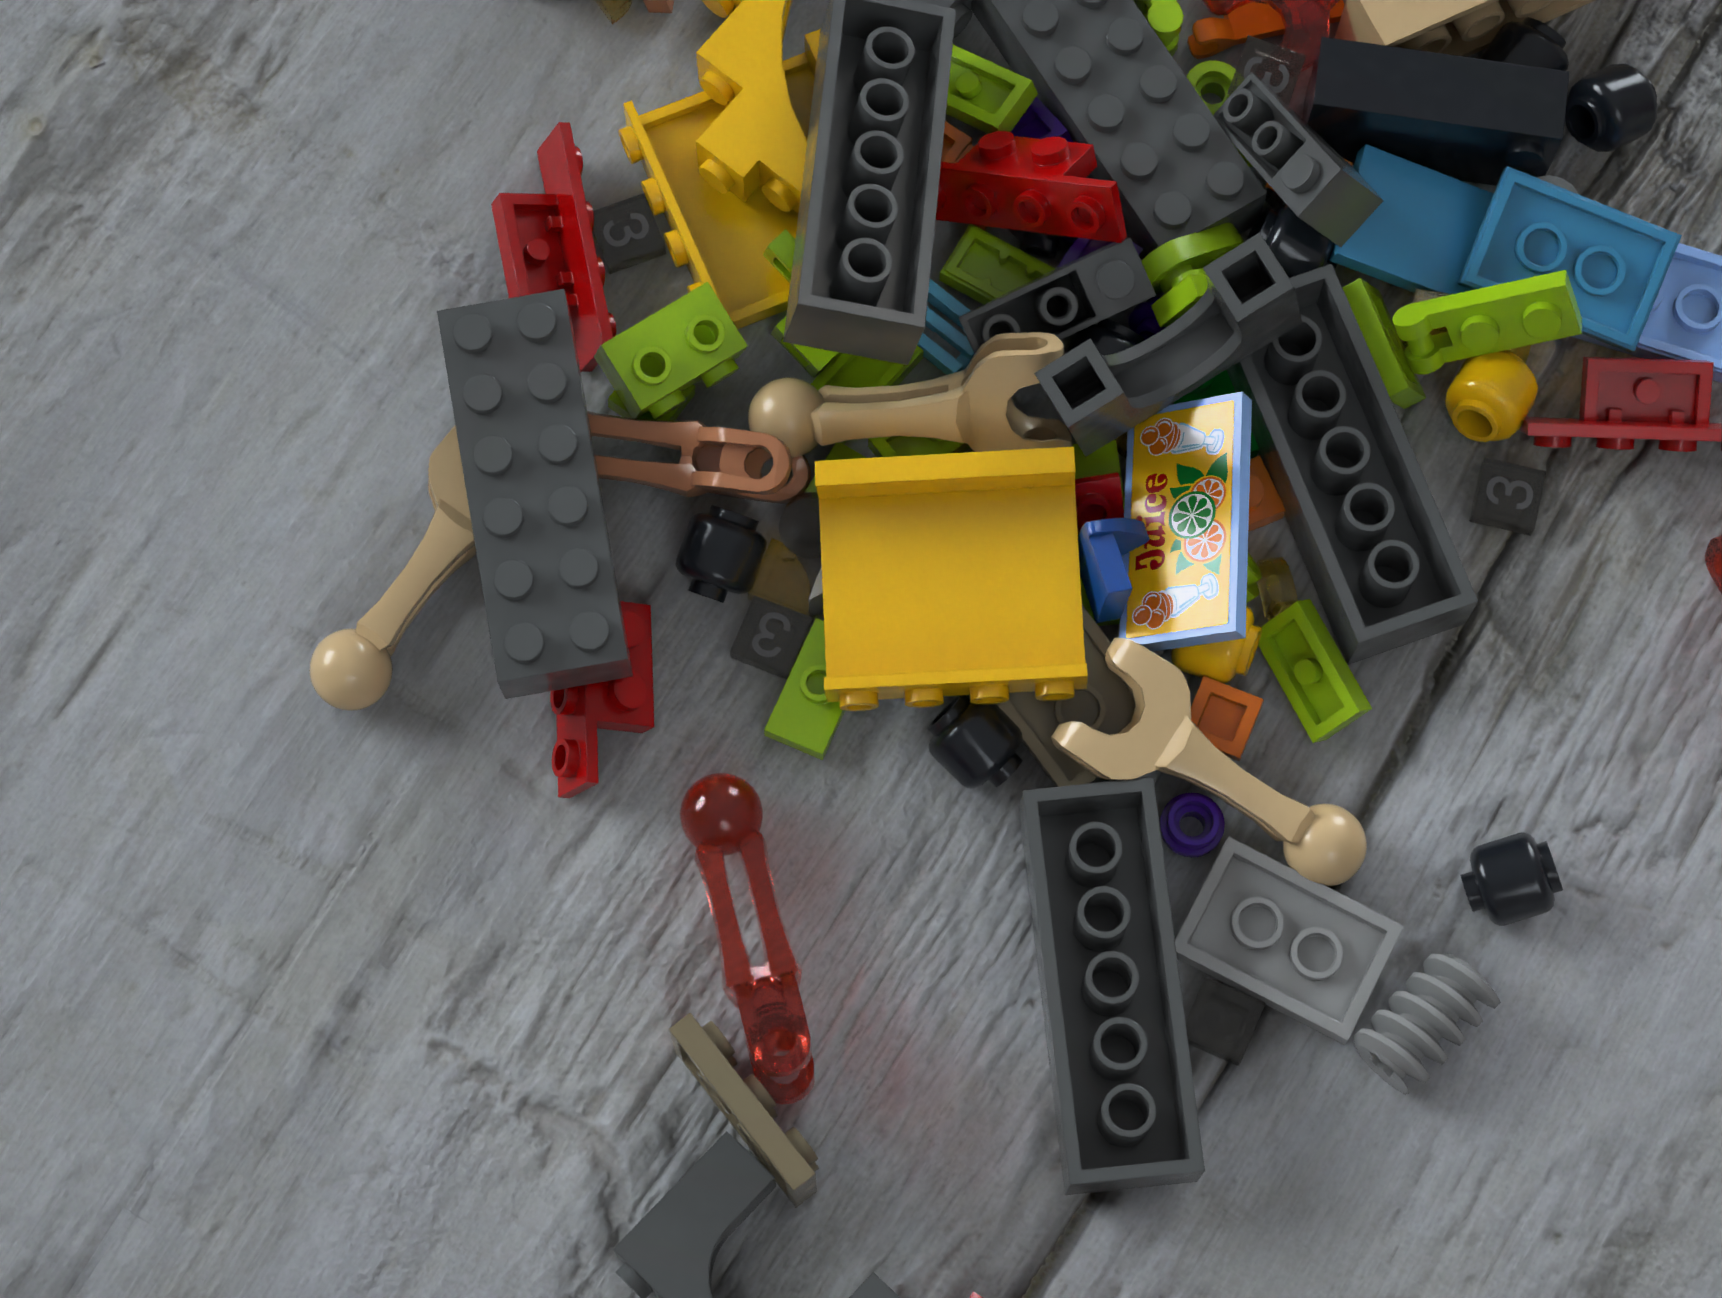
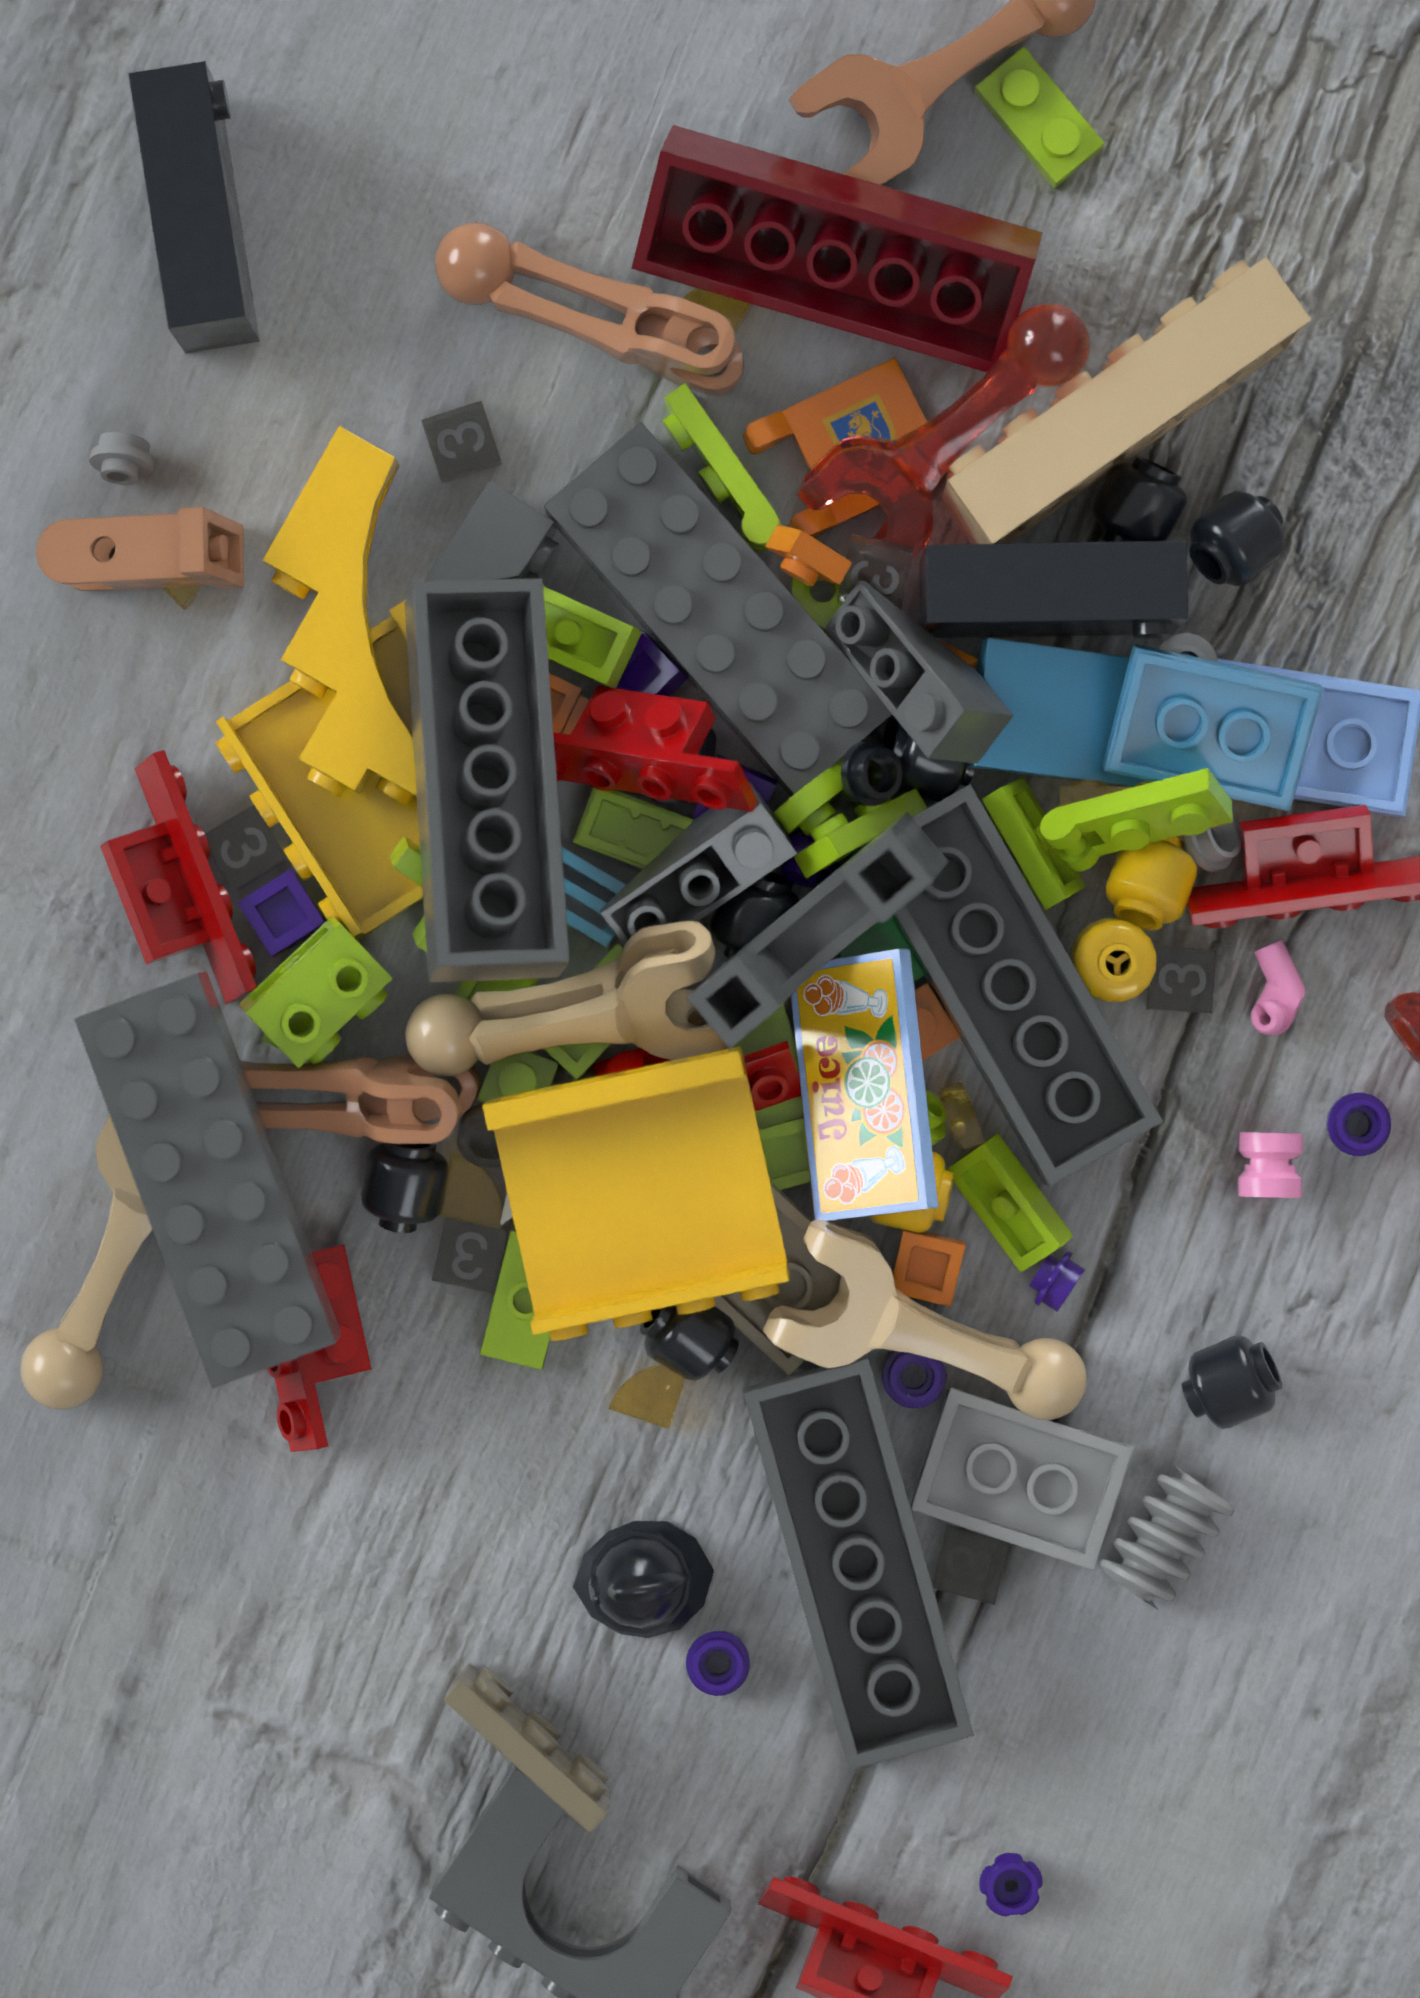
camera: 10 degrees left, 15 degrees up
(647, 286) = (282, 913): none -> dark purple plate
(724, 818) = (455, 1456): clear red piece -> none
(888, 981) = (644, 1578): none -> black piece
(925, 801) = (649, 1395): none -> clear yellow tile
(954, 1054) = (720, 1683): none -> dark purple plate
(1102, 566) = (785, 1147): blue tile -> none
(1206, 44) = (807, 557): none -> orange plate
(1233, 229) = (883, 773): none -> black plate
(1347, 755) = (1056, 1280): none -> dark purple plate
(1465, 459) = (1093, 948): none -> yellow head
(1555, 368) = (1214, 847): none -> light grey plate
(1575, 677) = (1270, 1165): none -> bright pink wheel
(1606, 522) = (1282, 992): none -> bright pink arm
(1676, 643) = (1378, 1120): none -> dark purple plate

